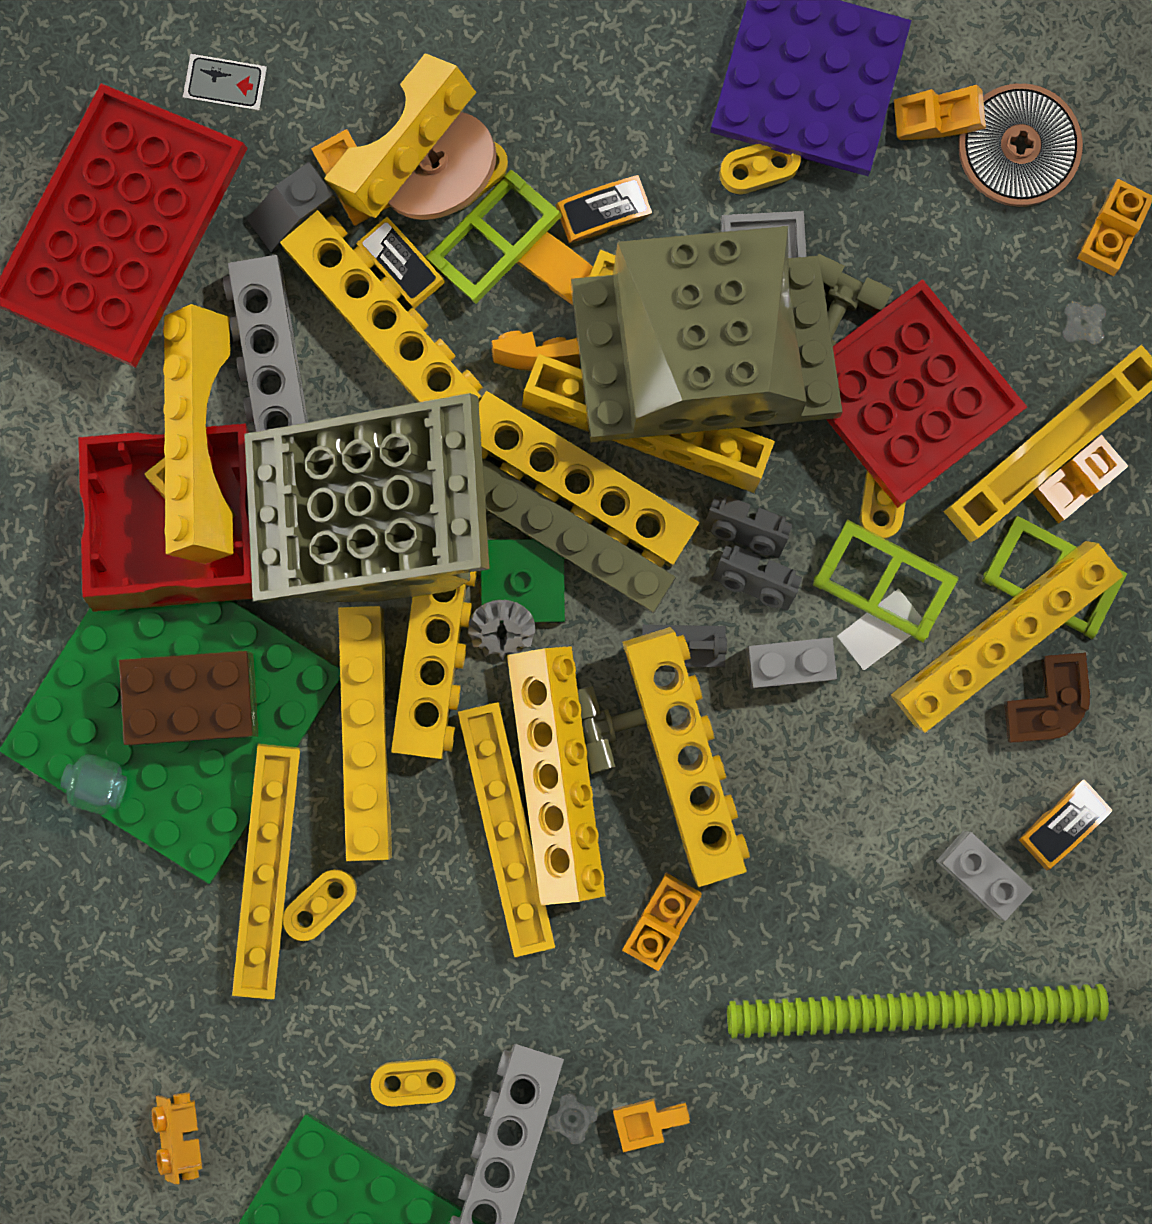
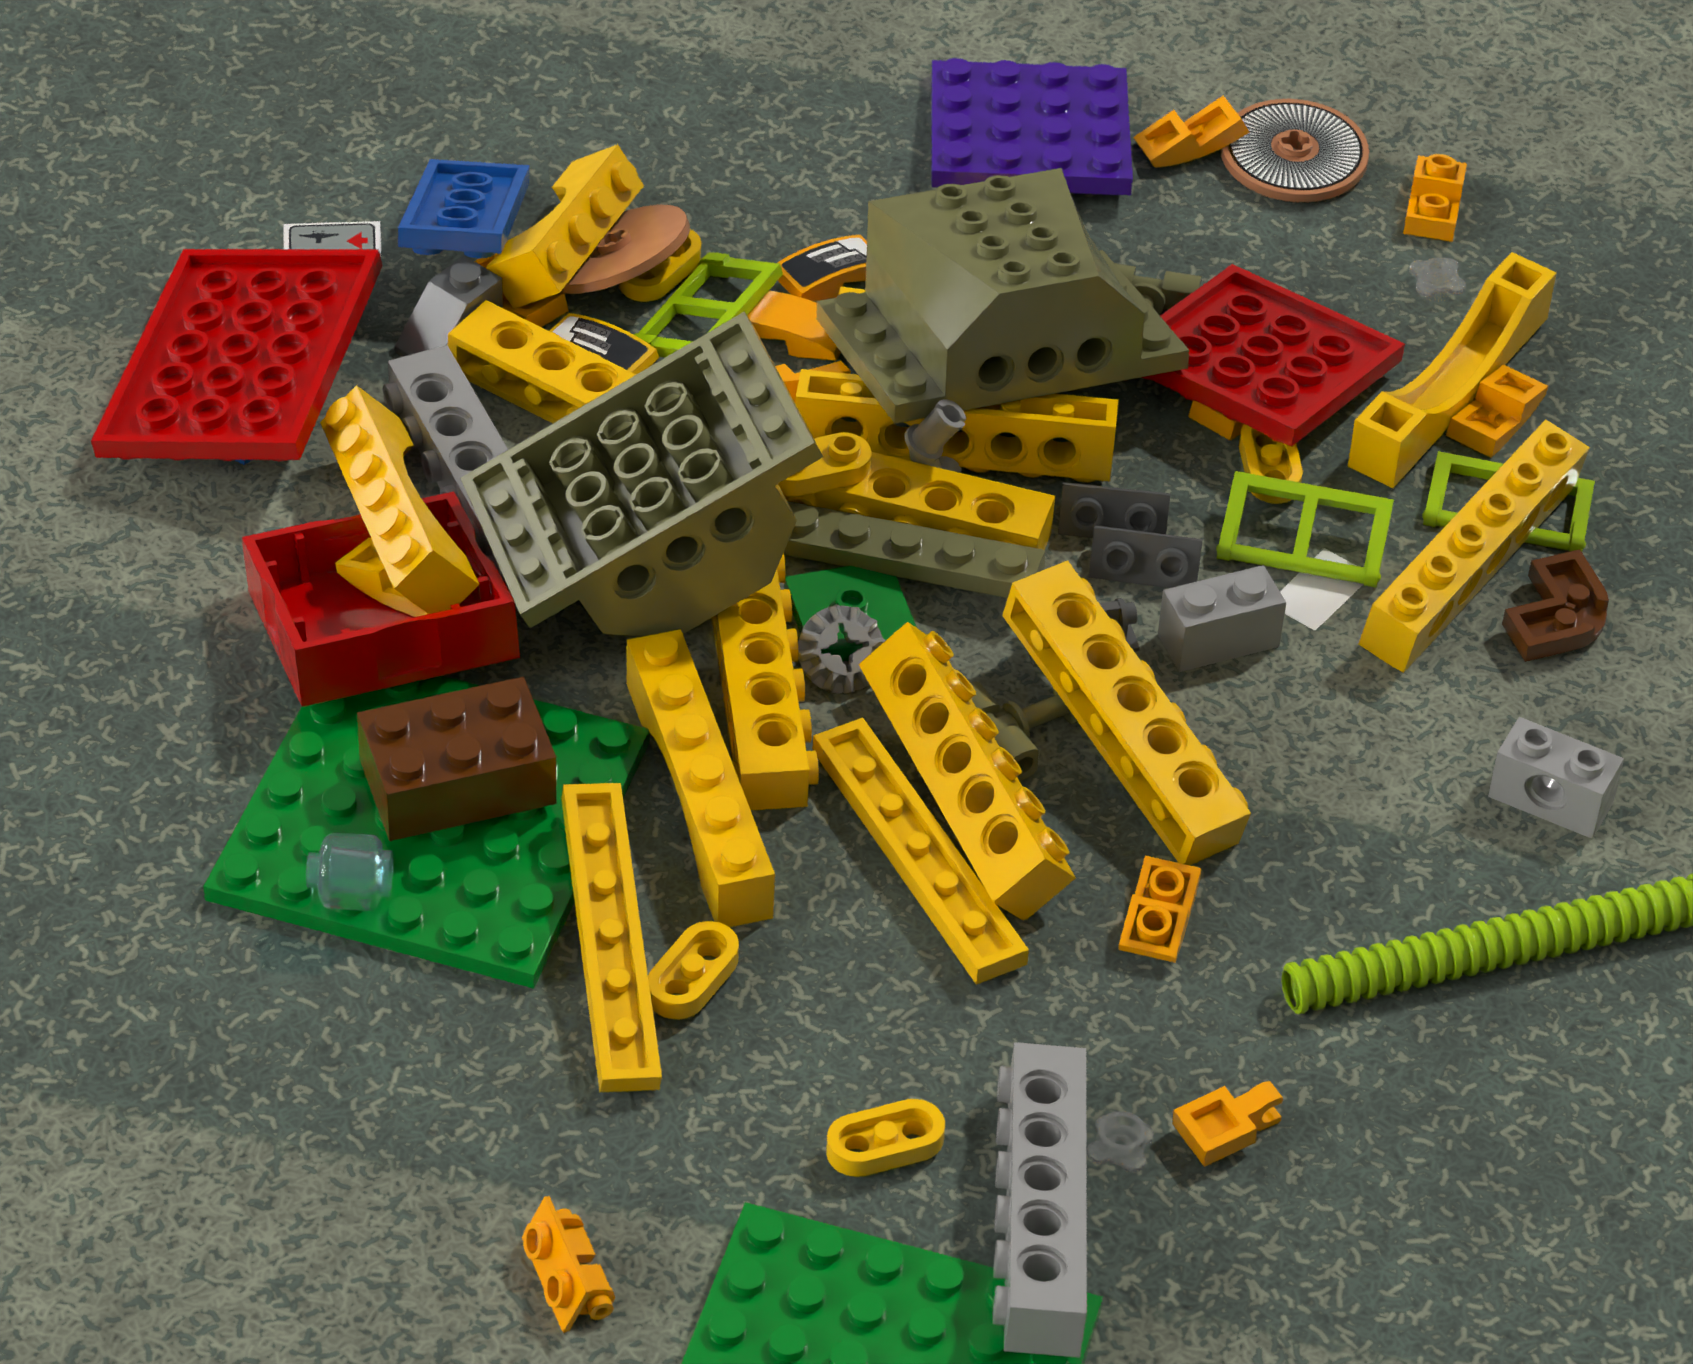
camera: 15 degrees left, 40 degrees down
(324, 96) = (463, 208): none -> blue plate
(526, 457) = (843, 464): none -> yellow plate
(621, 455) = (927, 439): none -> light grey piece
(1065, 825) = (1635, 719): slope -> none

